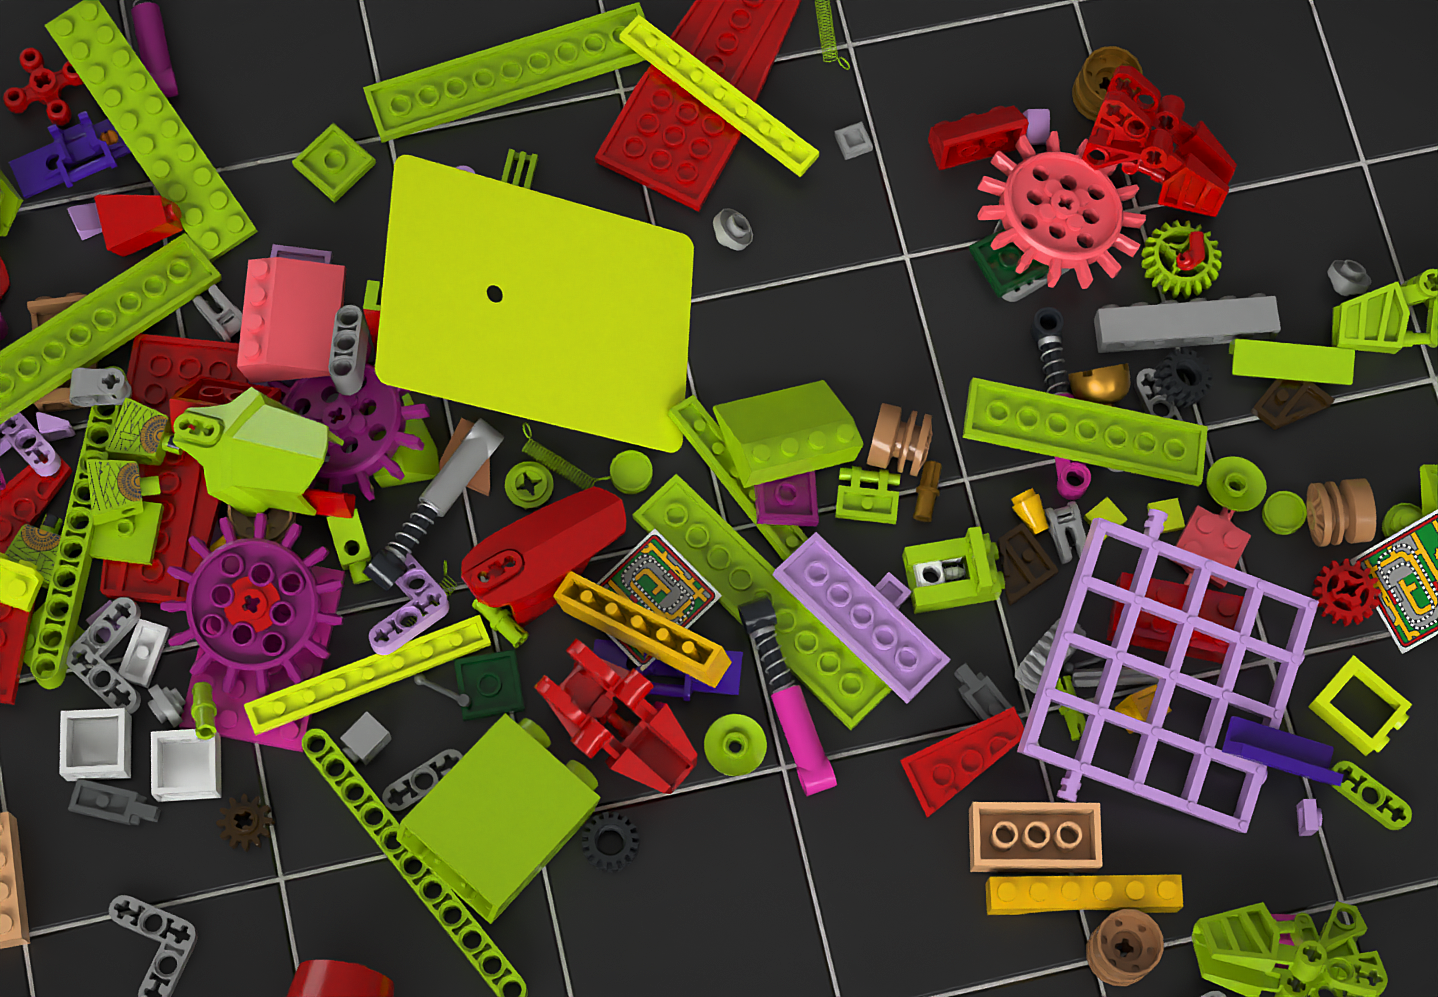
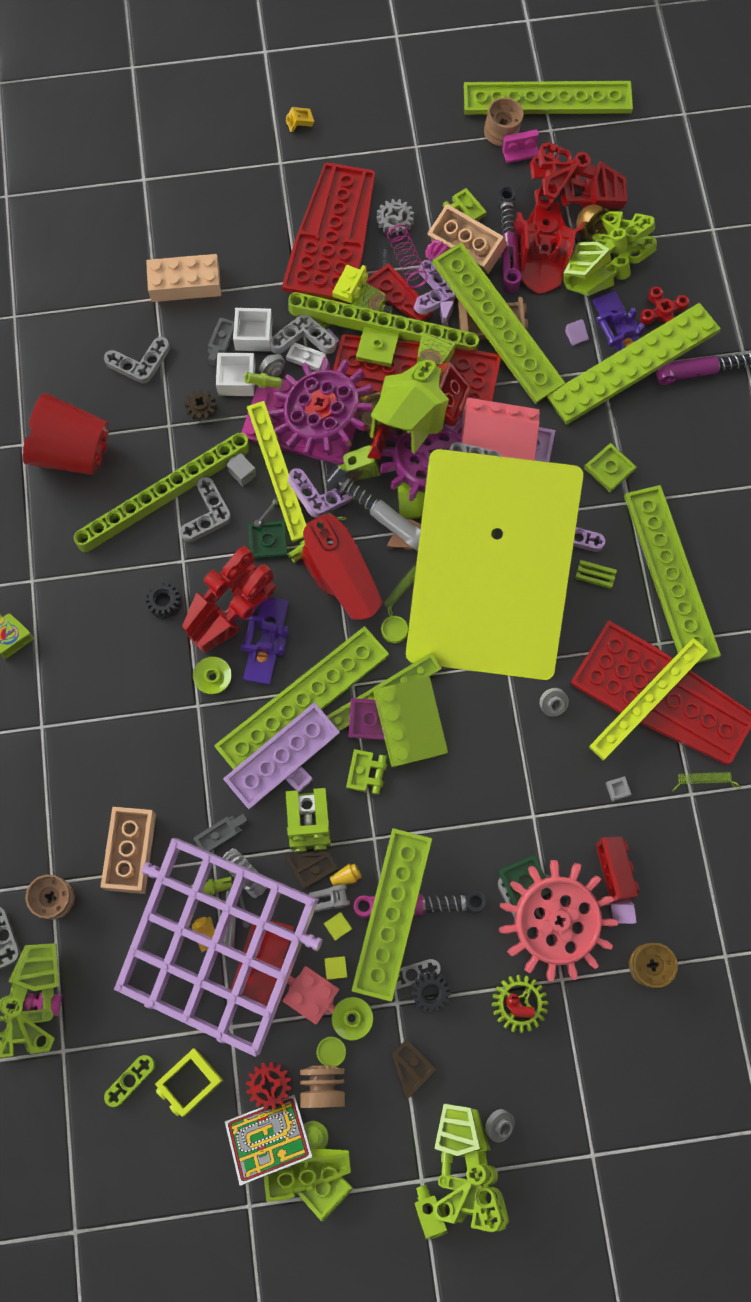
camera: 100 degrees right, 0 degrees up
(98, 387) = (462, 330): light grey piece -> none
(117, 489) = (397, 336): lime torso -> none
(136, 221) = (572, 354): red slope -> none
(225, 323) = (512, 395): light grey piece -> none
(499, 815) = (179, 532): lime brick -> none
(536, 473) = (395, 562): lime gear -> none
(642, 629) = (281, 618): yellow brick -> none
(661, 582) = (307, 630): sticker -> none
(812, 764) = (192, 720): piece -> none
(900, 439) = (399, 789): medium nougat wheel -> none
(927, 491) = (366, 810): pearl gold axle -> none
(956, 761) = (185, 809): red wing -> none
(1101, 384) = (429, 932): pearl gold cylinder -> none
(1105, 892) = (85, 899): yellow arch -> none
(1186, 323) = (471, 1001): light grey brick -> none
(1192, 176) = (610, 966): red piece -> none
(1280, 750) = (158, 1017): dark purple panel -> none
(1292, 361) = (437, 1071): lime panel -> none
(1308, 817) = (119, 1035): lavender plate -> none

